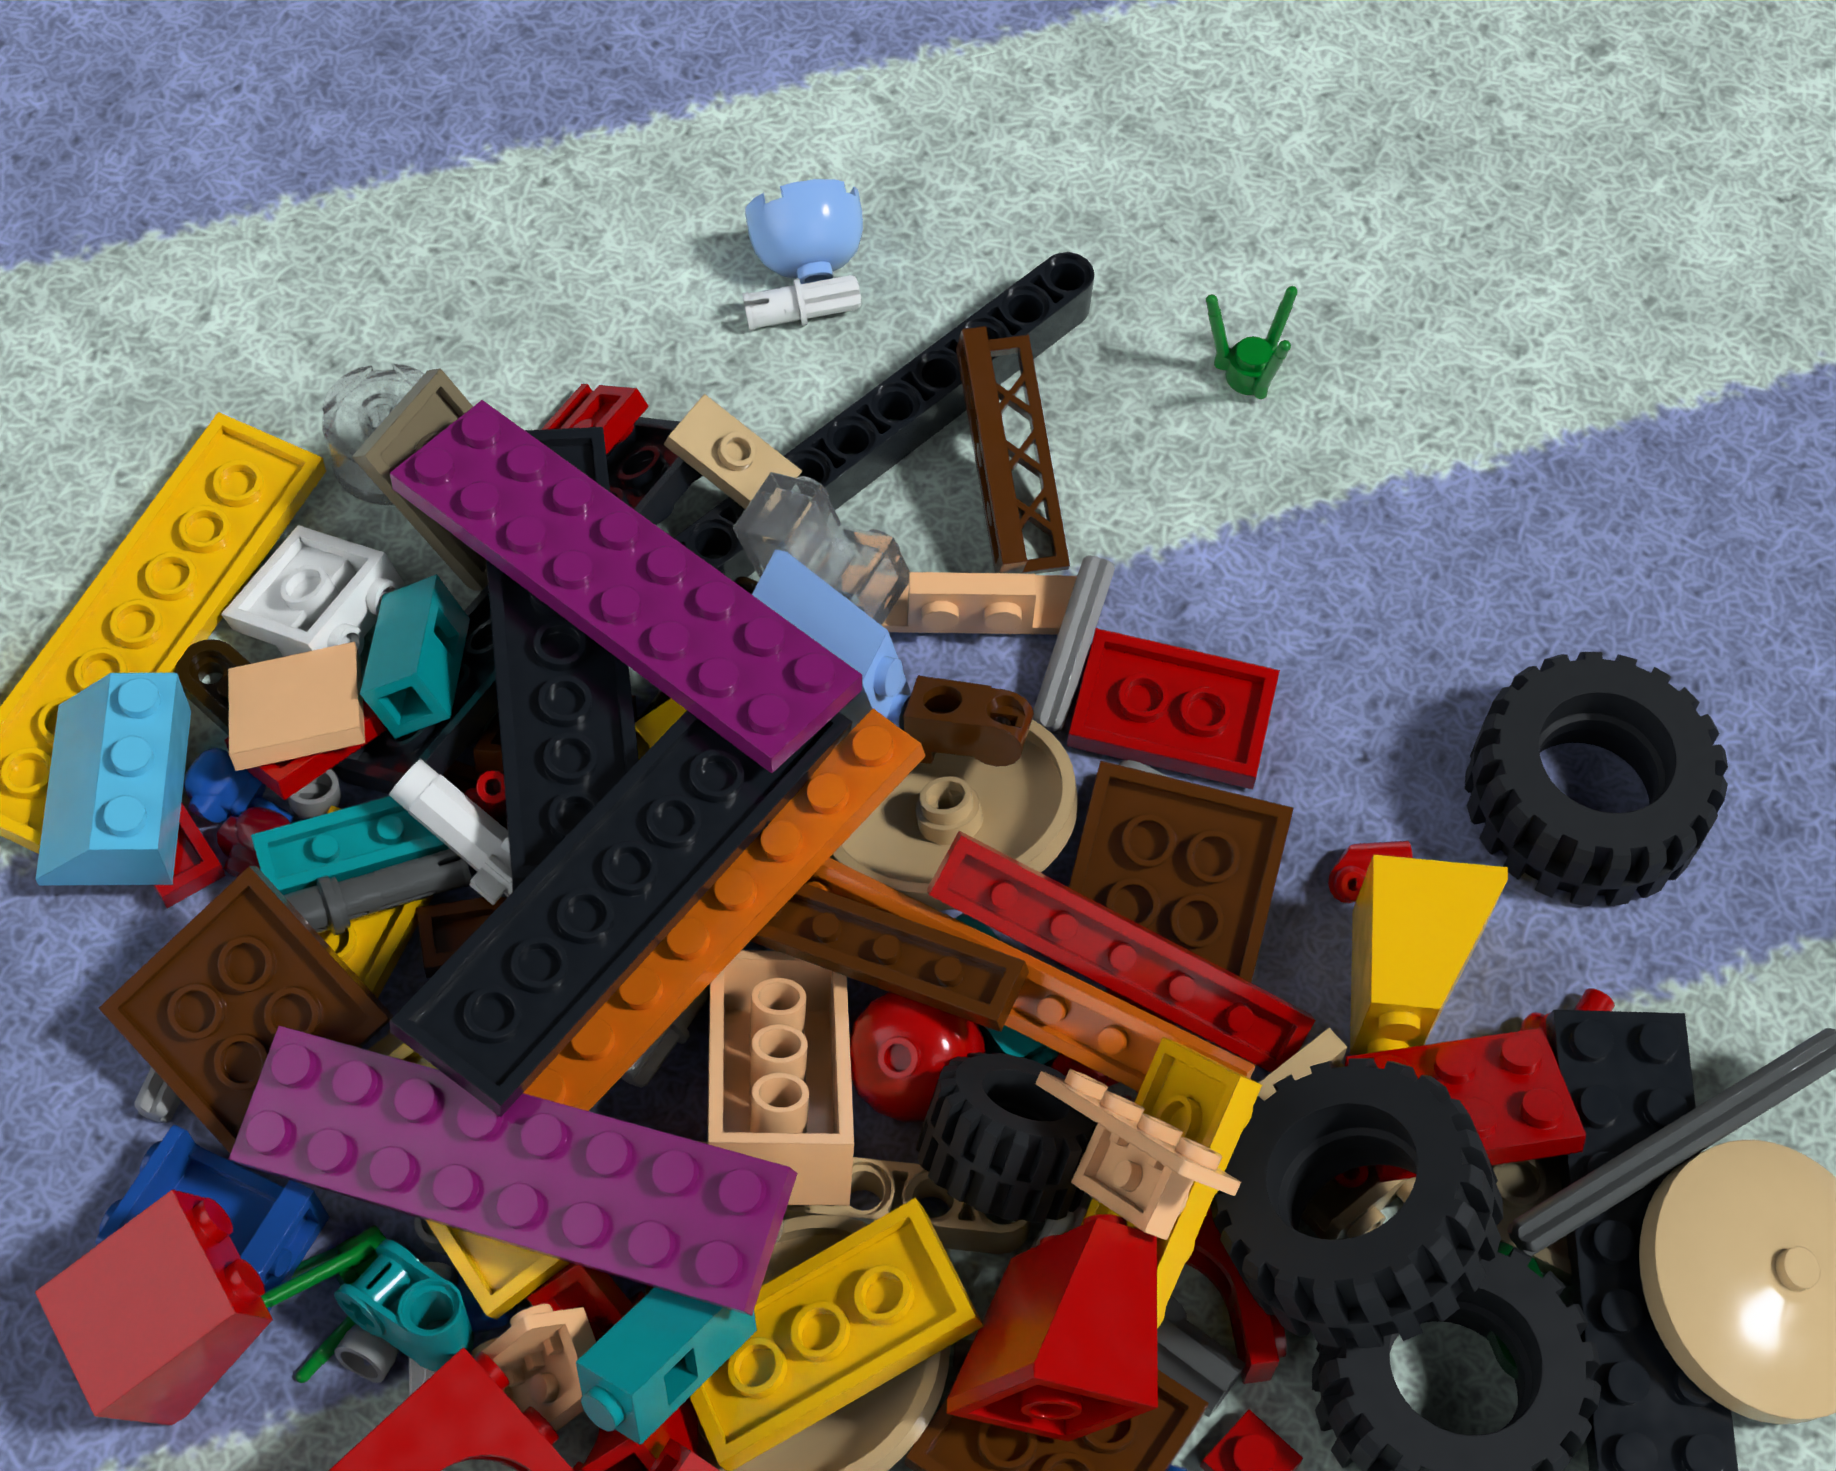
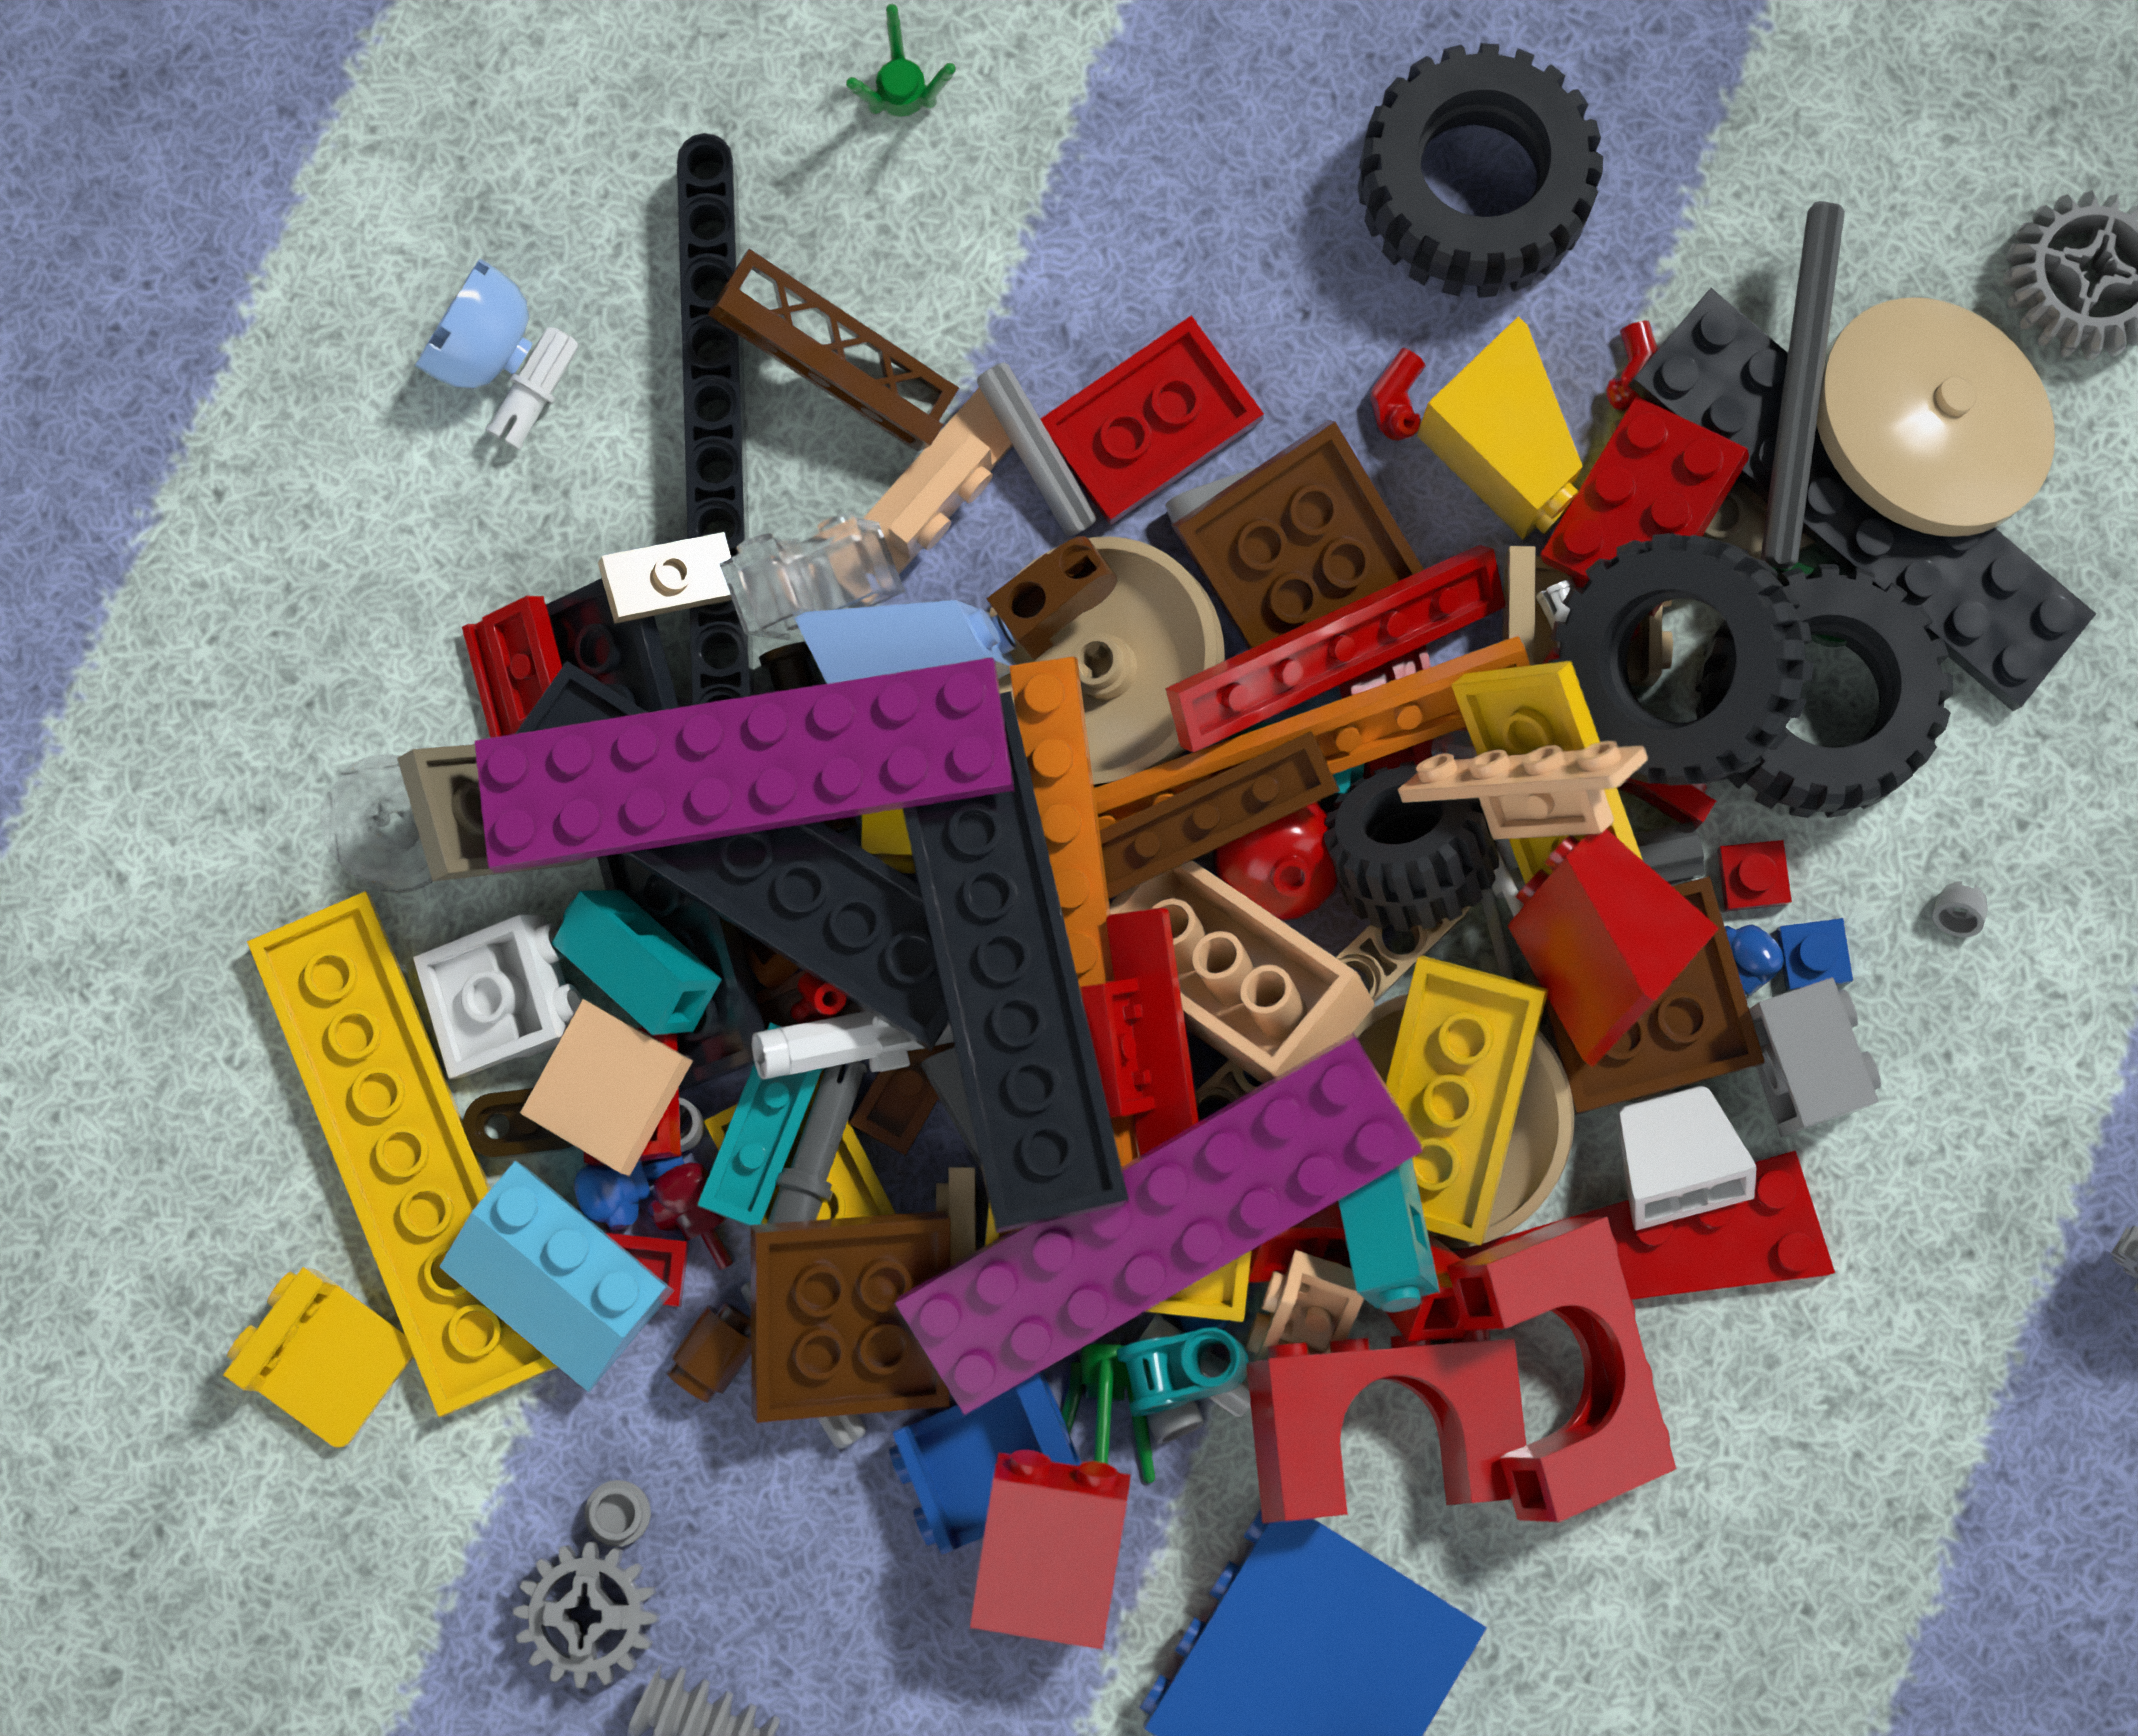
camera: 45 degrees left, 20 degrees up
(130, 945) = (712, 1352): none -> reddish brown brick
(660, 1022) = (1142, 1029): none -> red bracket

